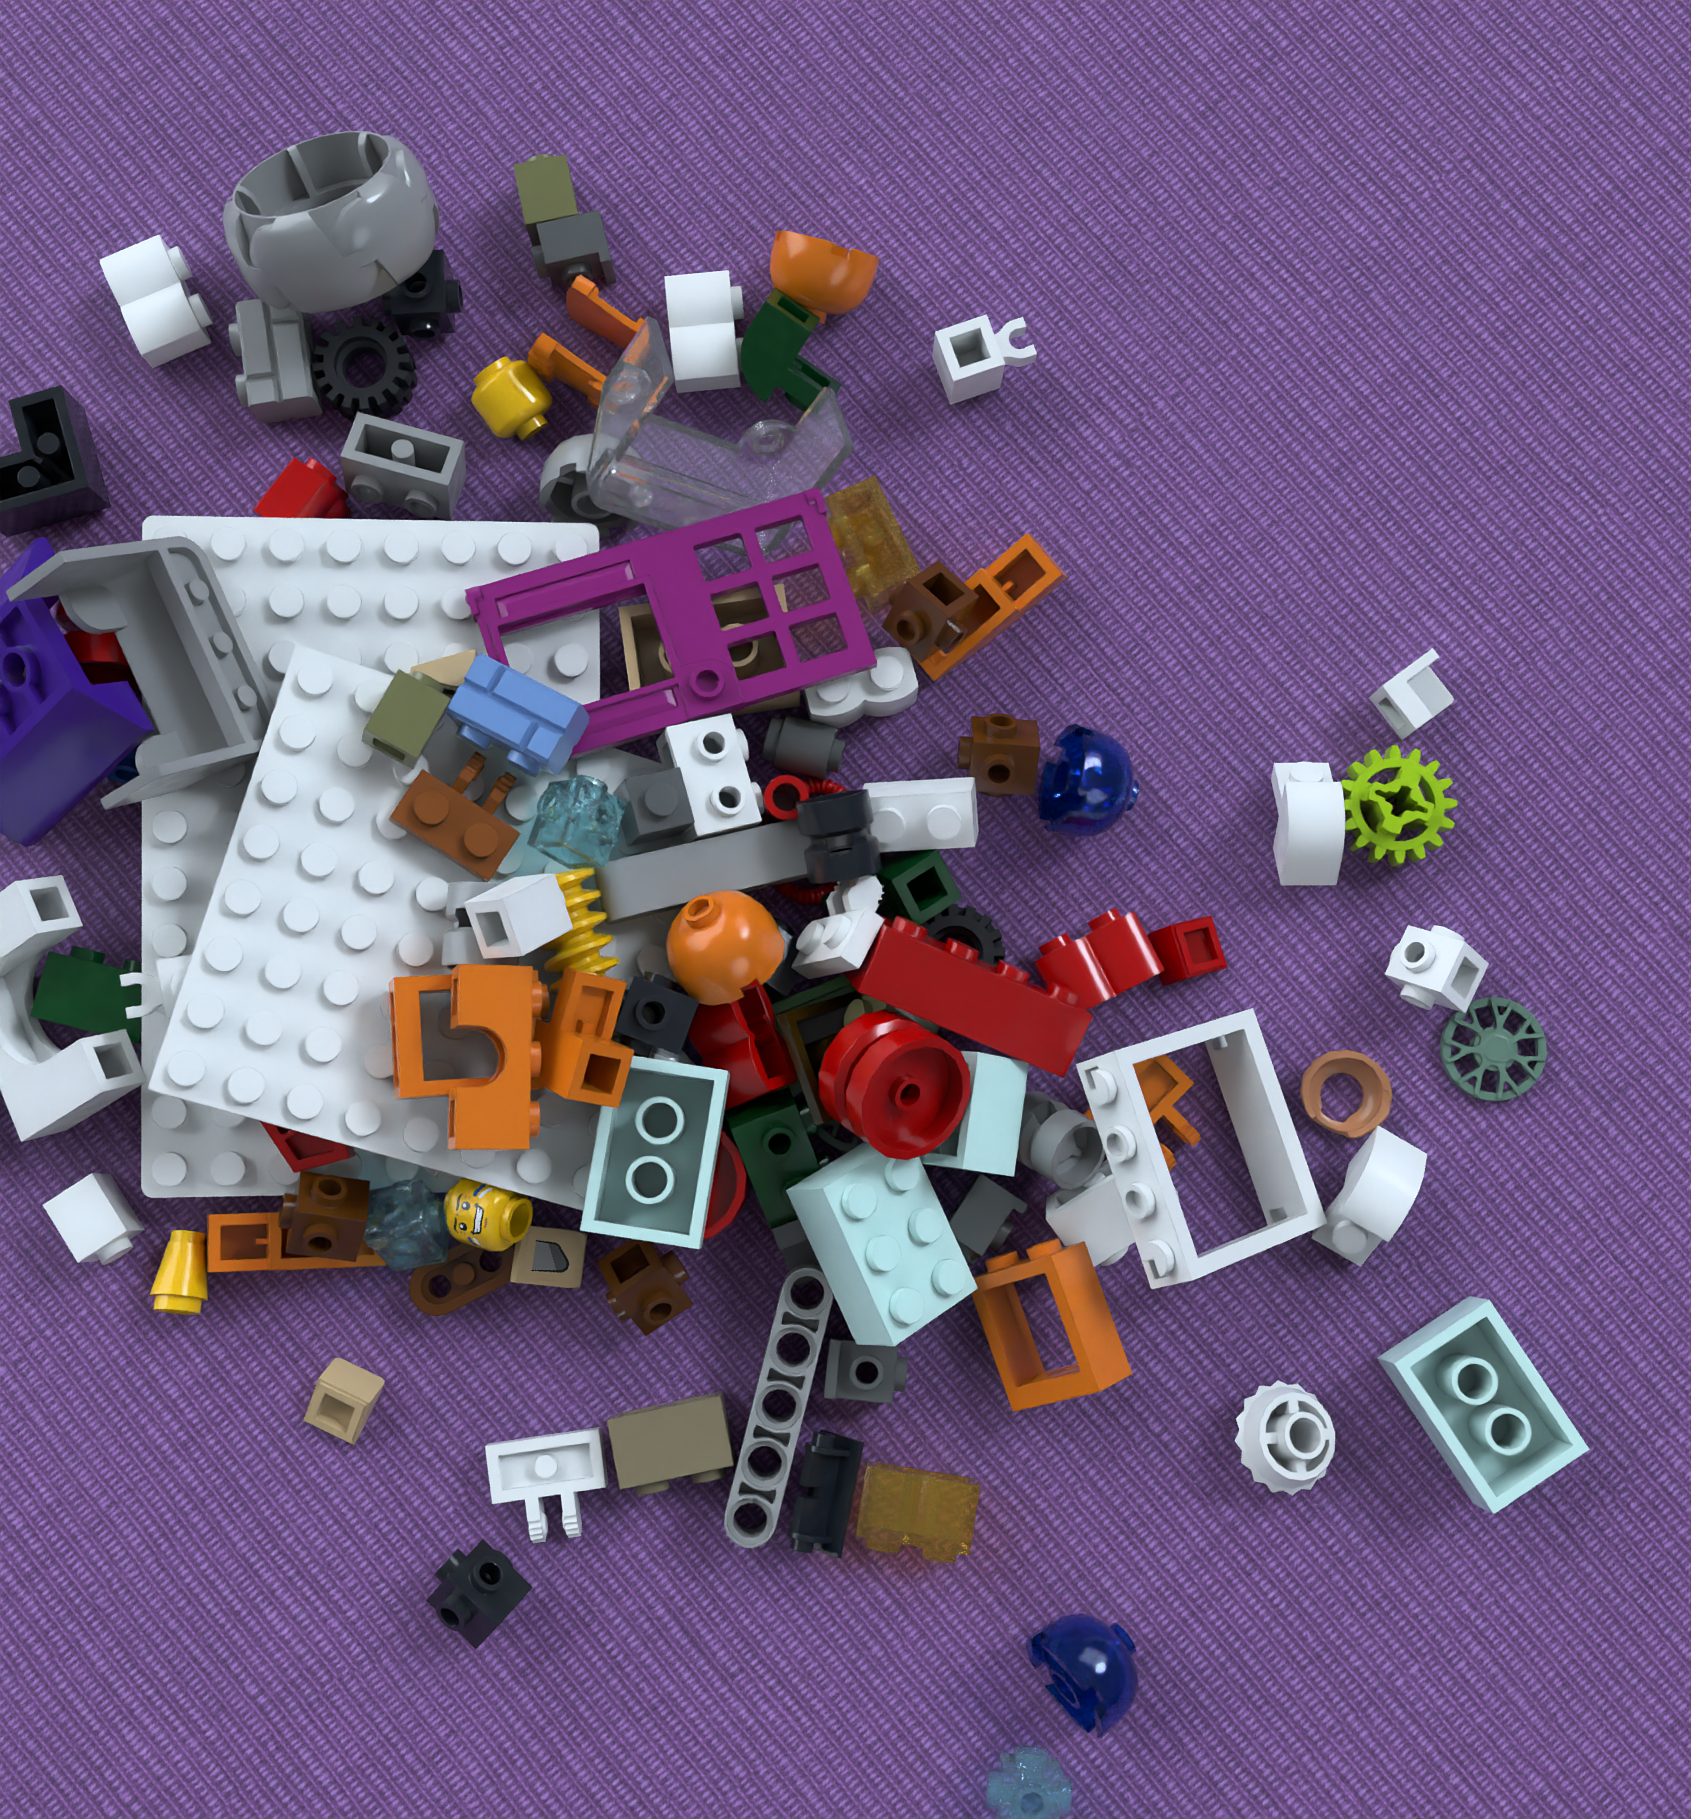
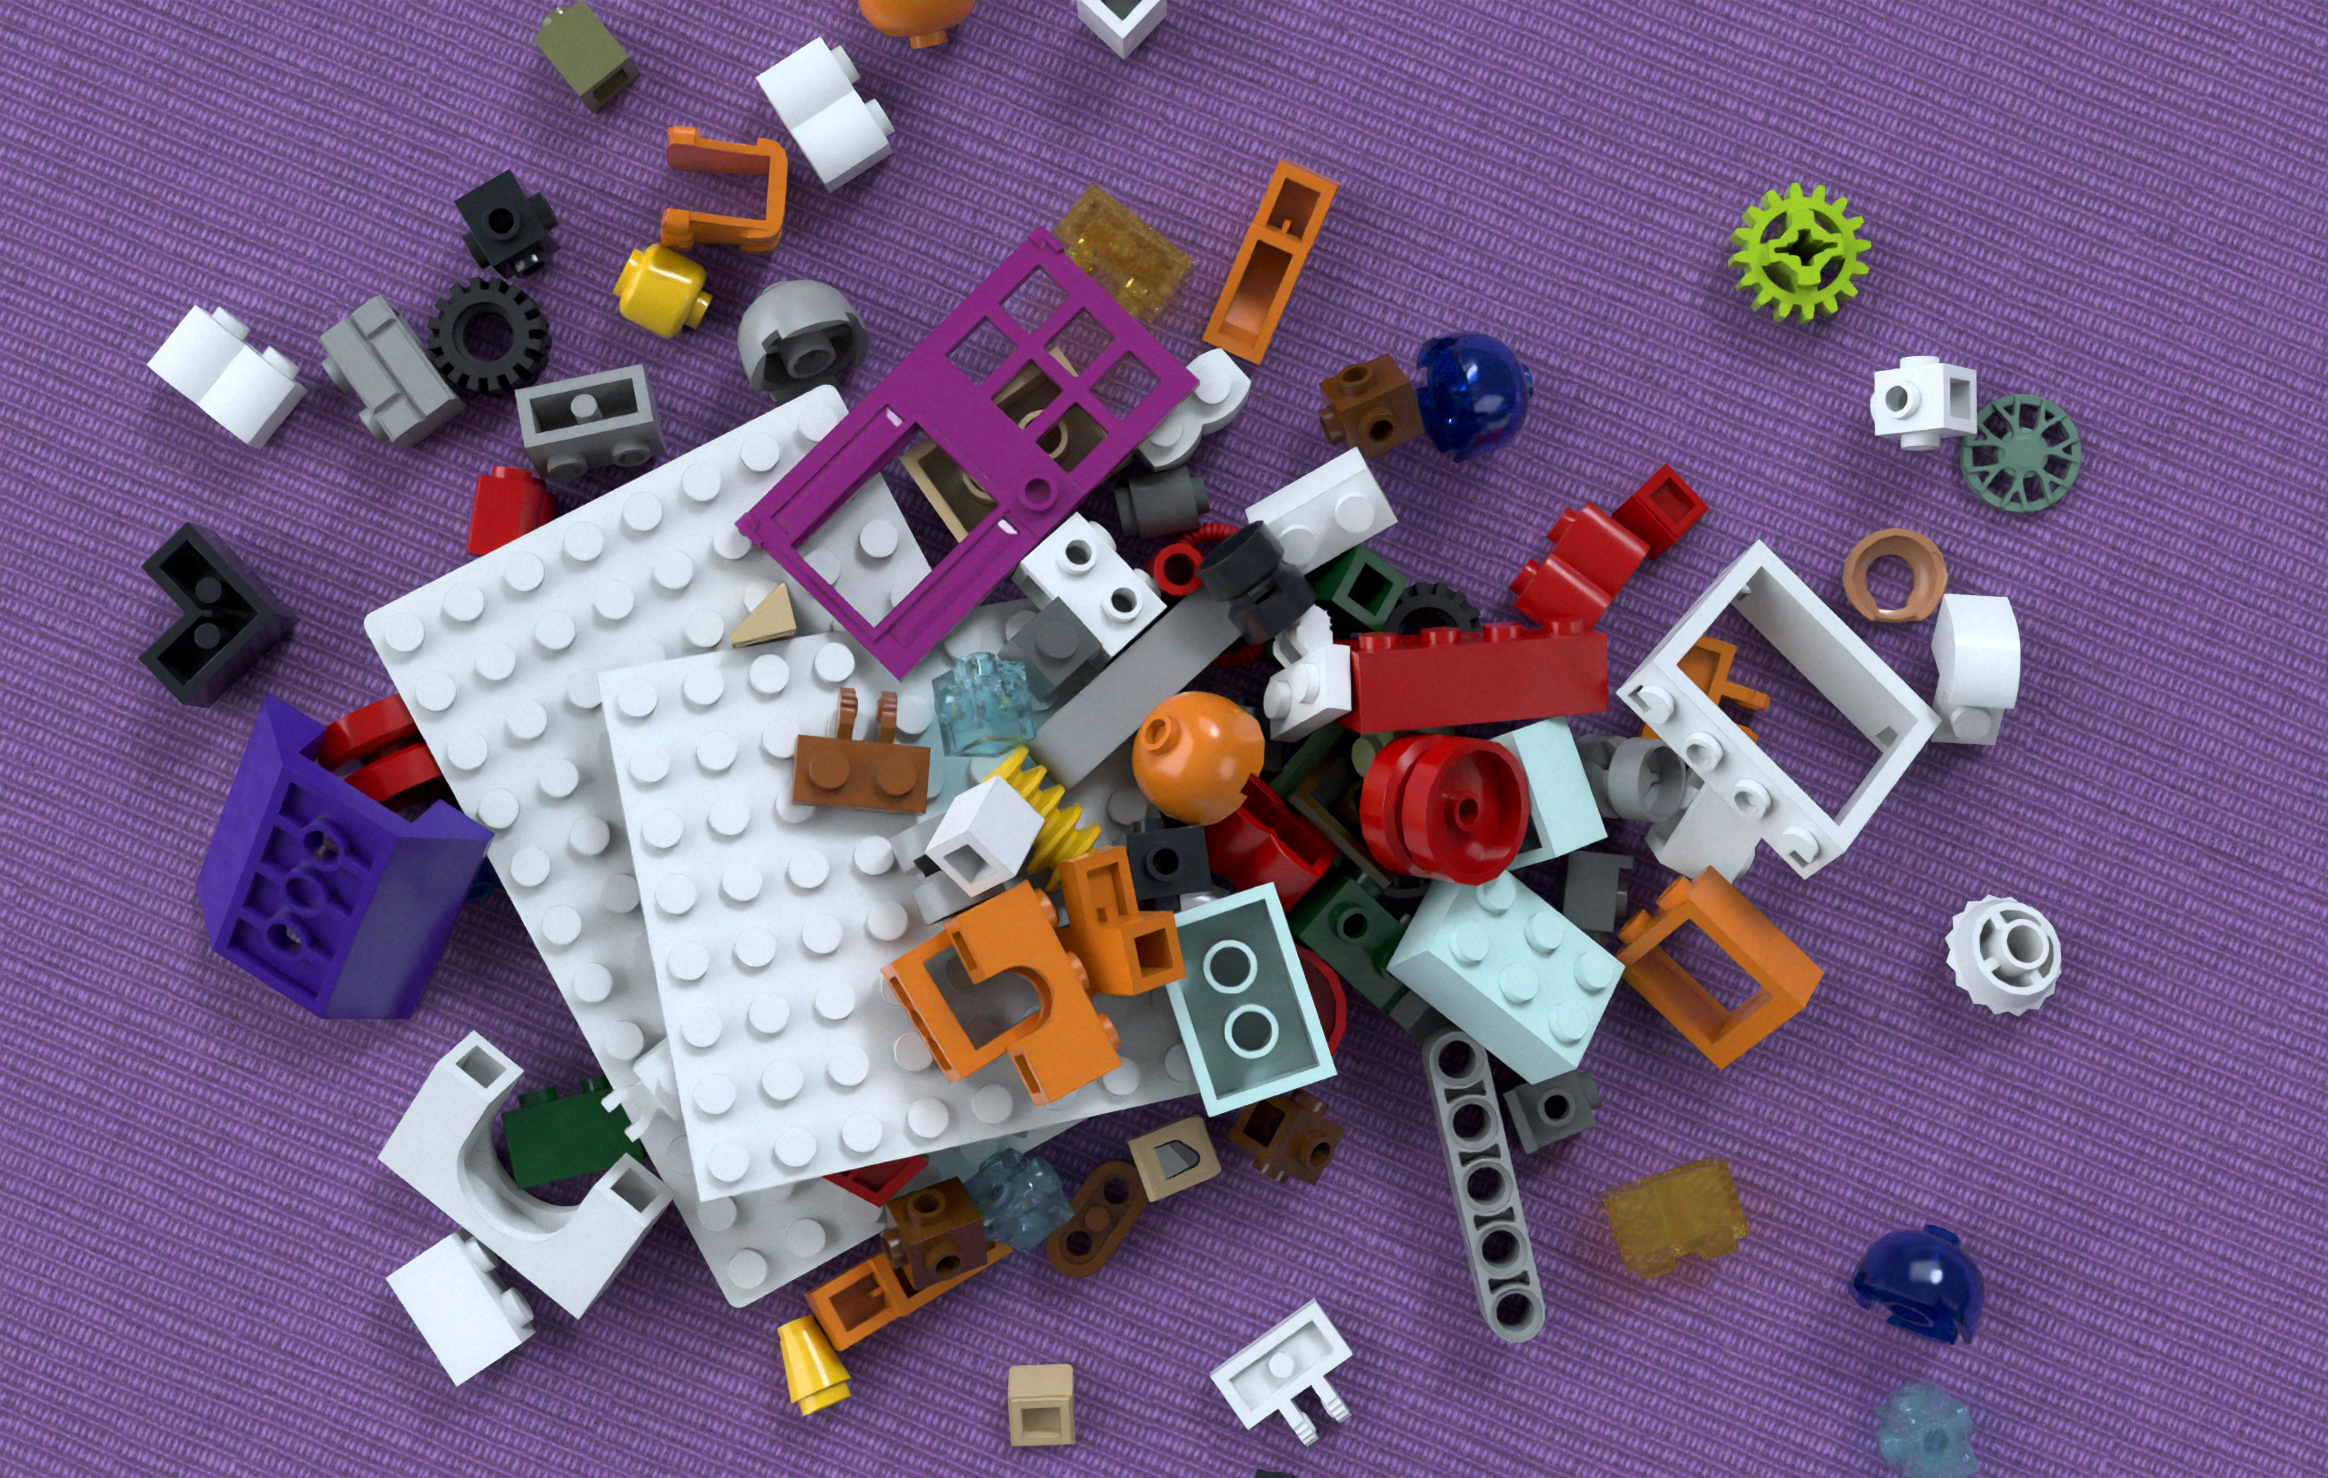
camera: 25 degrees left, 5 degrees up
(94, 1219) = (694, 1358): white brick -> none
(179, 647) = (481, 742): light grey windscreen -> none
(332, 221) = (380, 201): light grey wheel -> none
(406, 717) = (755, 689): olive brick -> none
(486, 1215) = (1093, 1149): yellow head -> none
(517, 716) = (867, 630): medium blue brick -> none
(572, 249) = (642, 97): dark grey brick -> none
(672, 1442) = (1395, 1276): dark tan brick -> none
(684, 476) = (897, 282): clear windscreen -> none
(772, 350) = (917, 106): dark green brick -> none
(831, 1475) = (1574, 1233): black hinge -> none
(930, 612) = (1220, 311): reddish brown brick -> none
(1309, 823) = (1722, 317): white brick -> none
(1412, 696) = (1761, 128): white panel -> none
(1483, 1404) = (2184, 820): light aqua brick -> none

